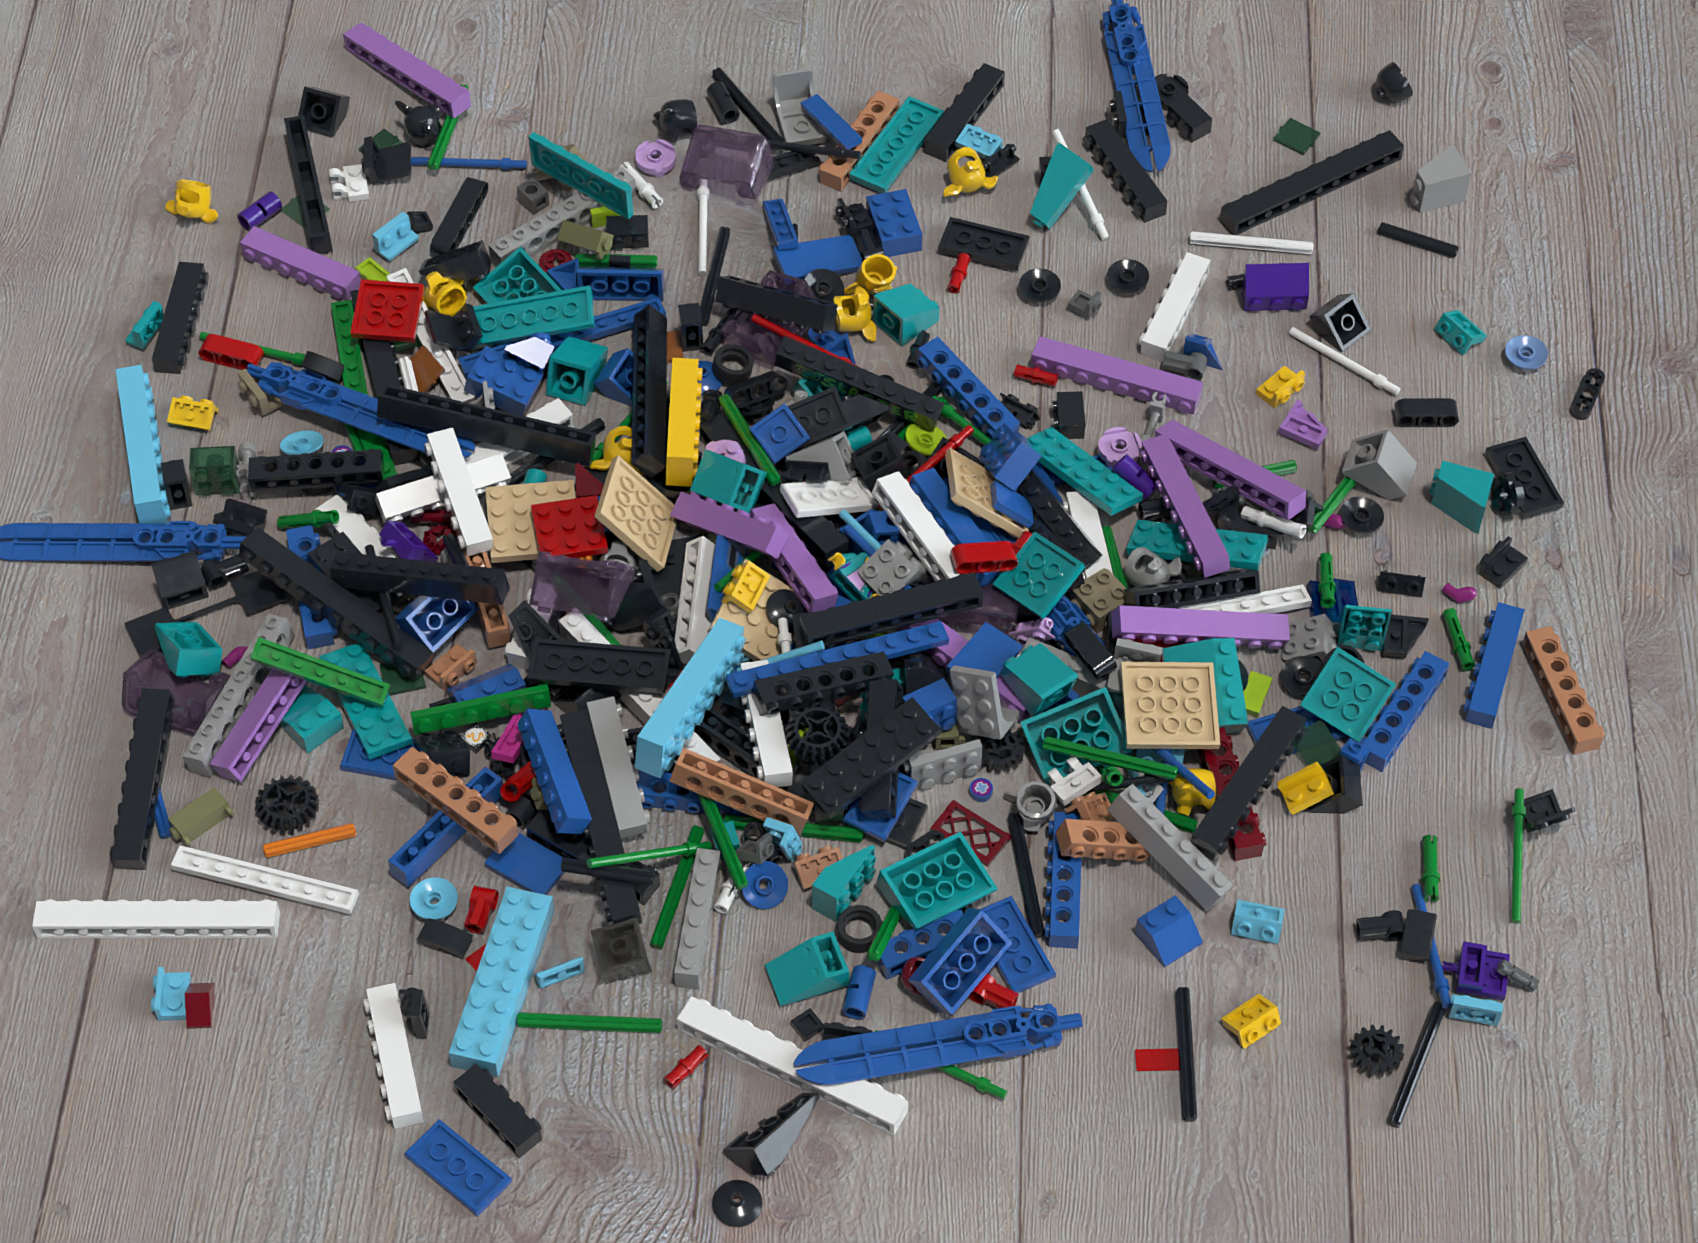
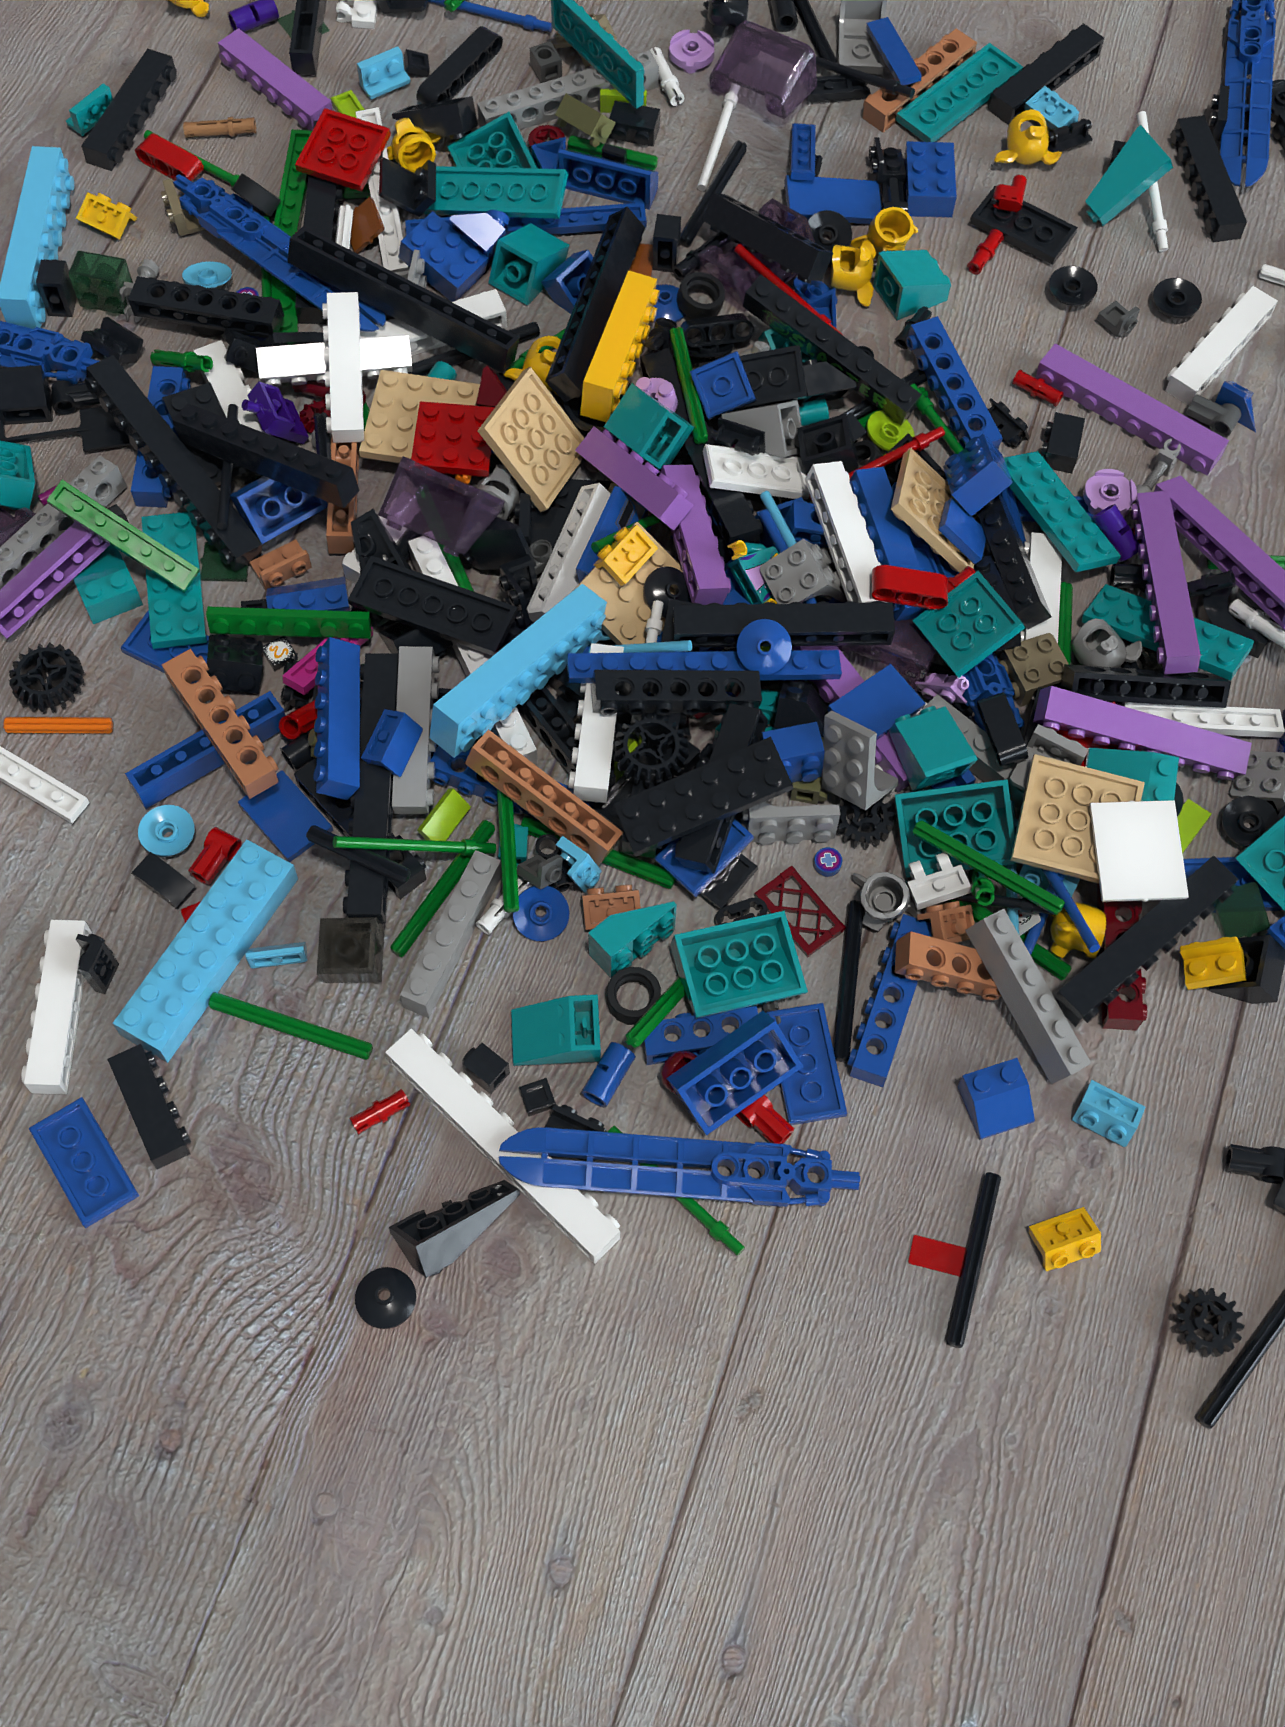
camera: 15 degrees right, 10 degrees up
(268, 314) = (219, 127): none -> medium nougat pin
(606, 777) = (392, 741): none -> blue panel
(660, 830) = (444, 816): none -> lime tile
(760, 1011) = (485, 1067): none -> black brick
(872, 636) = (749, 646): none -> blue dish
(966, 223) = (1010, 197): none -> red piece
(1223, 715) = (1138, 851): none -> white piece

